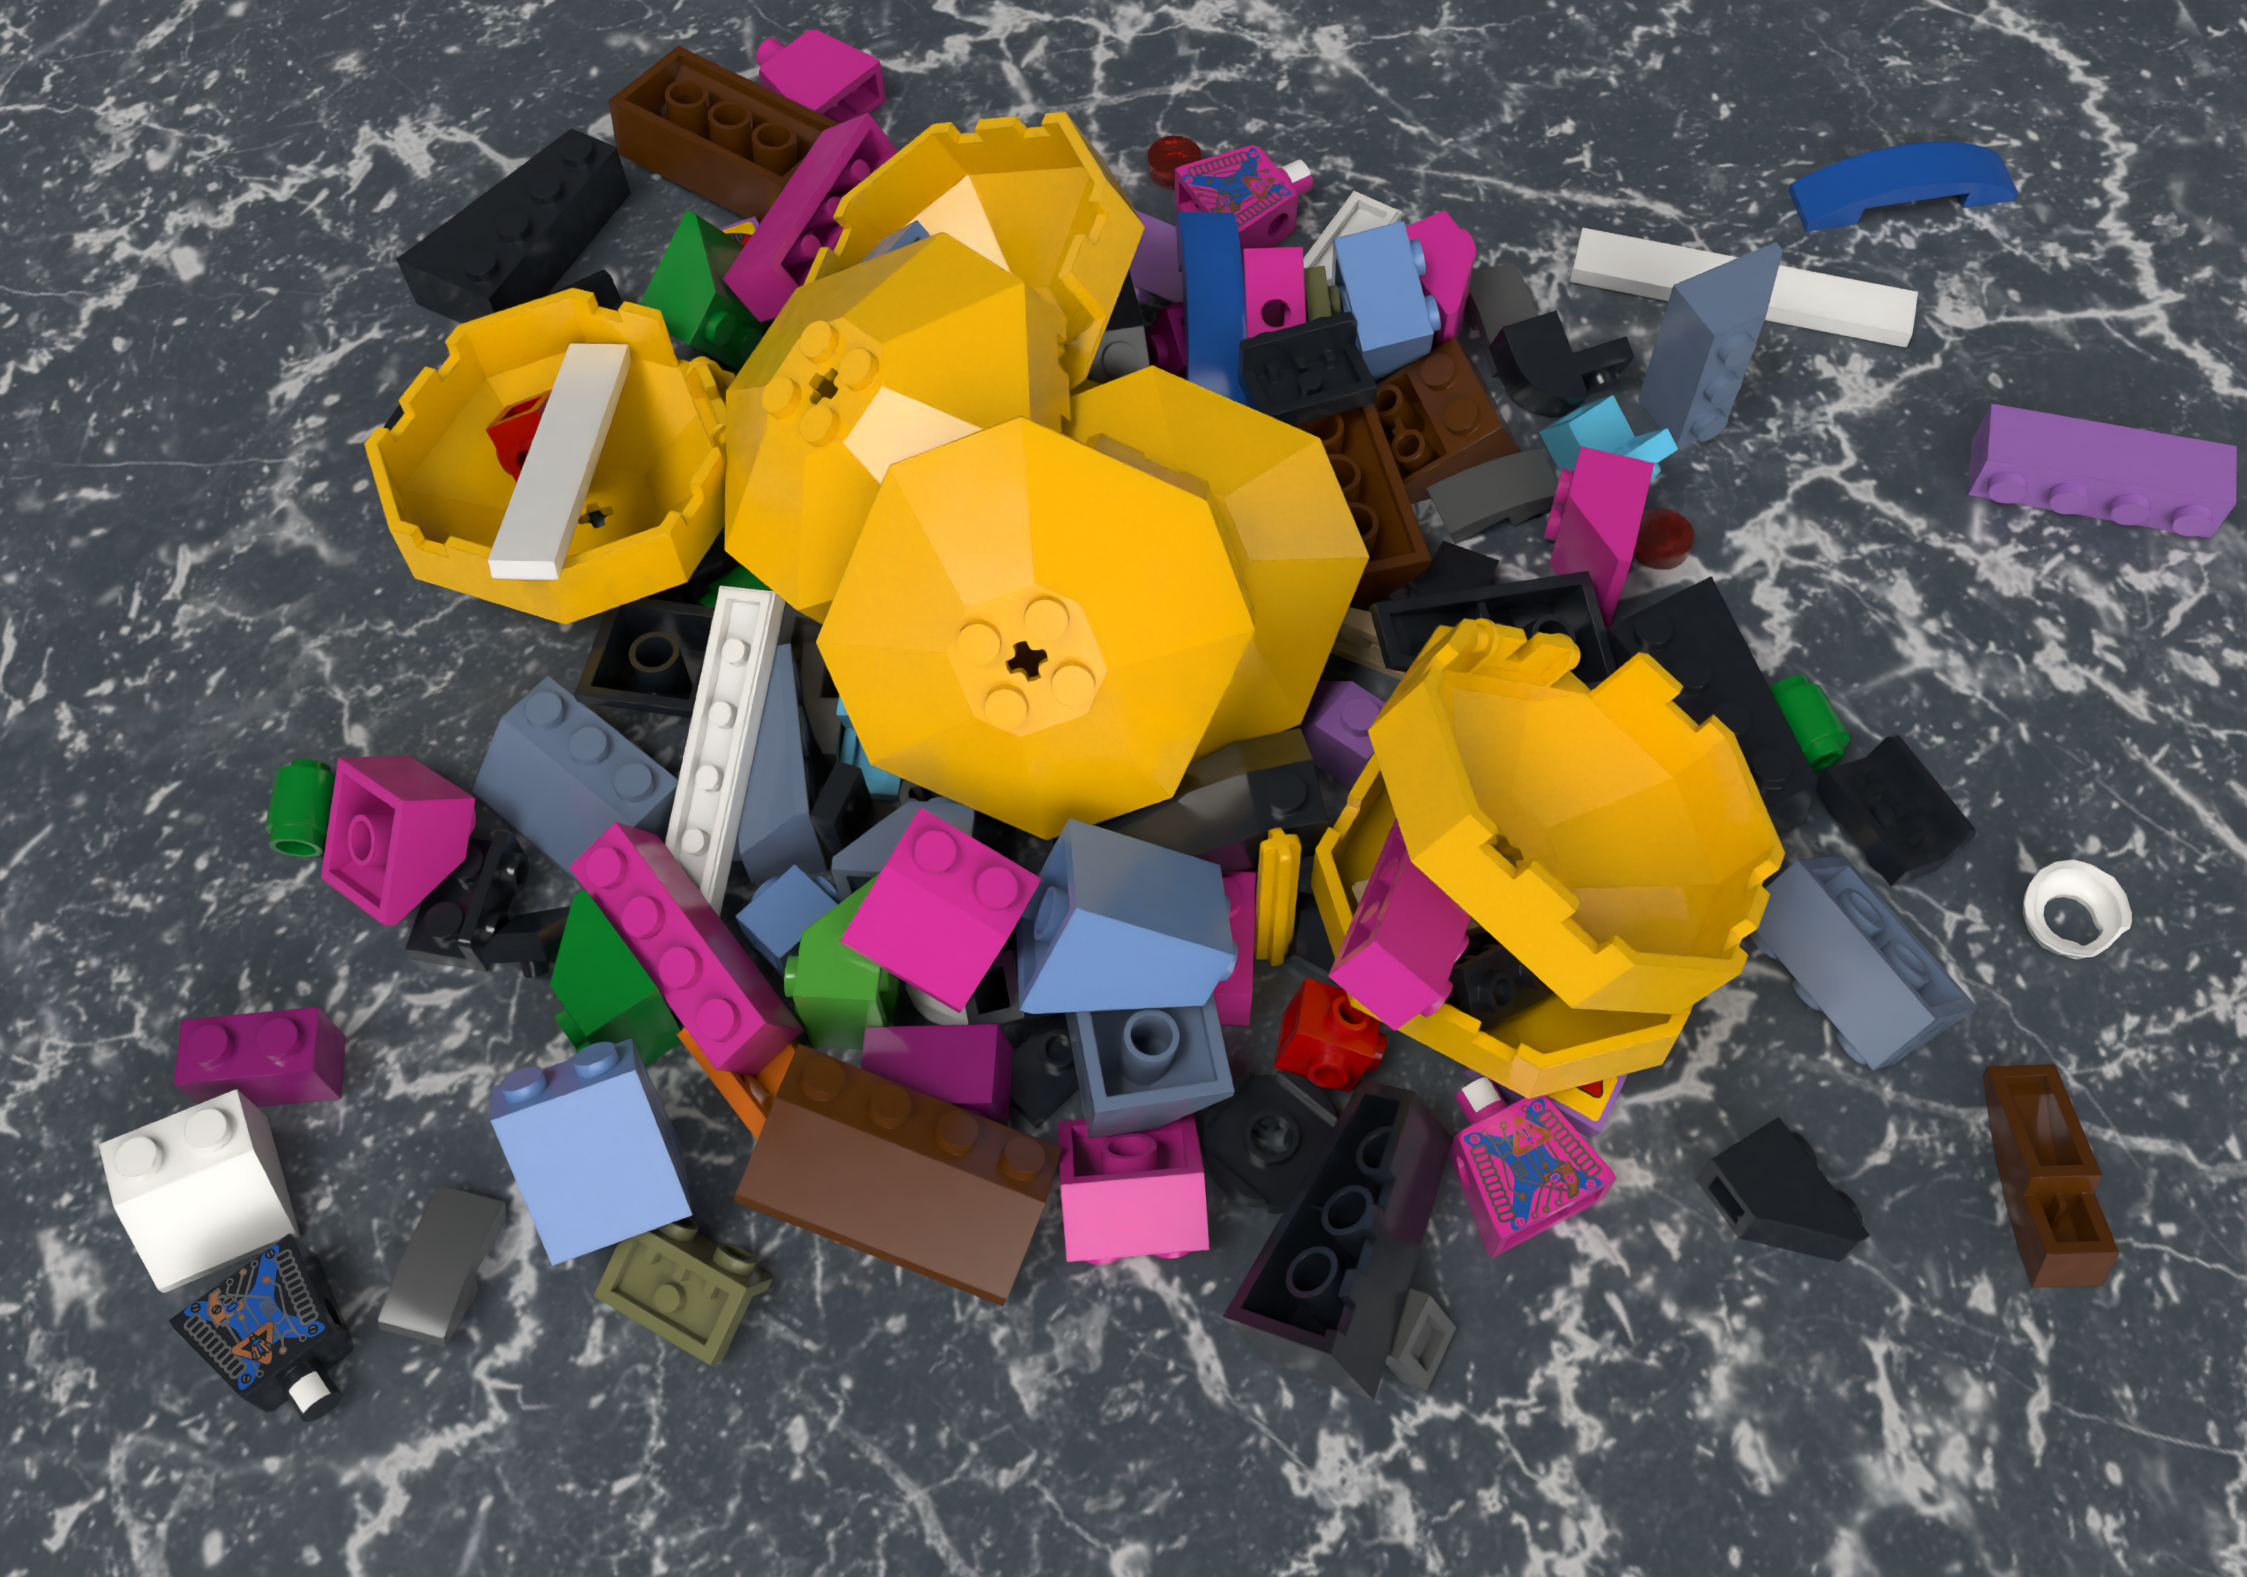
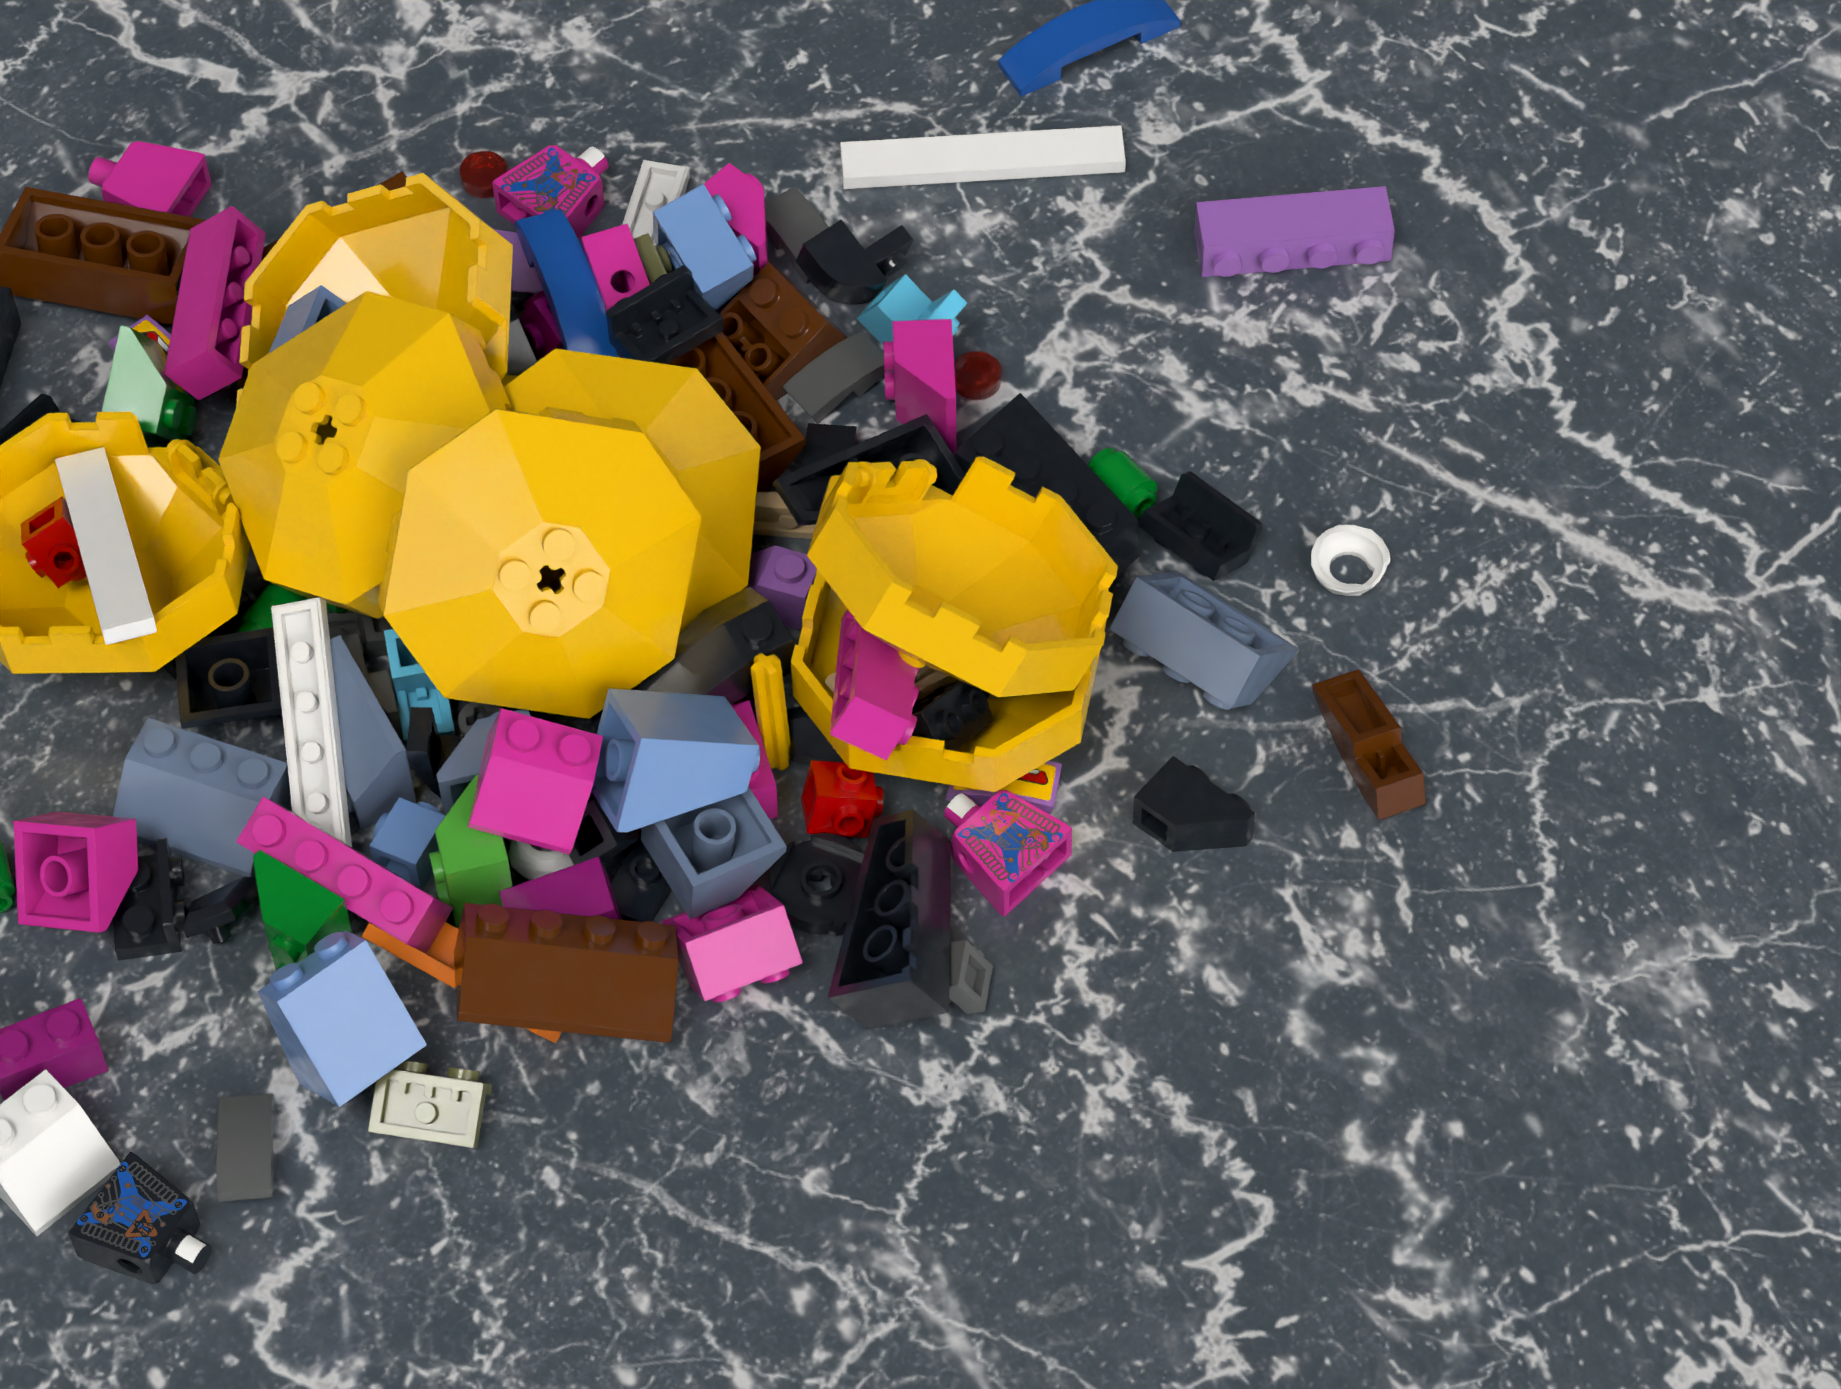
camera: 20 degrees left, 5 degrees down
(1708, 345) = (966, 218): sand blue slope -> none

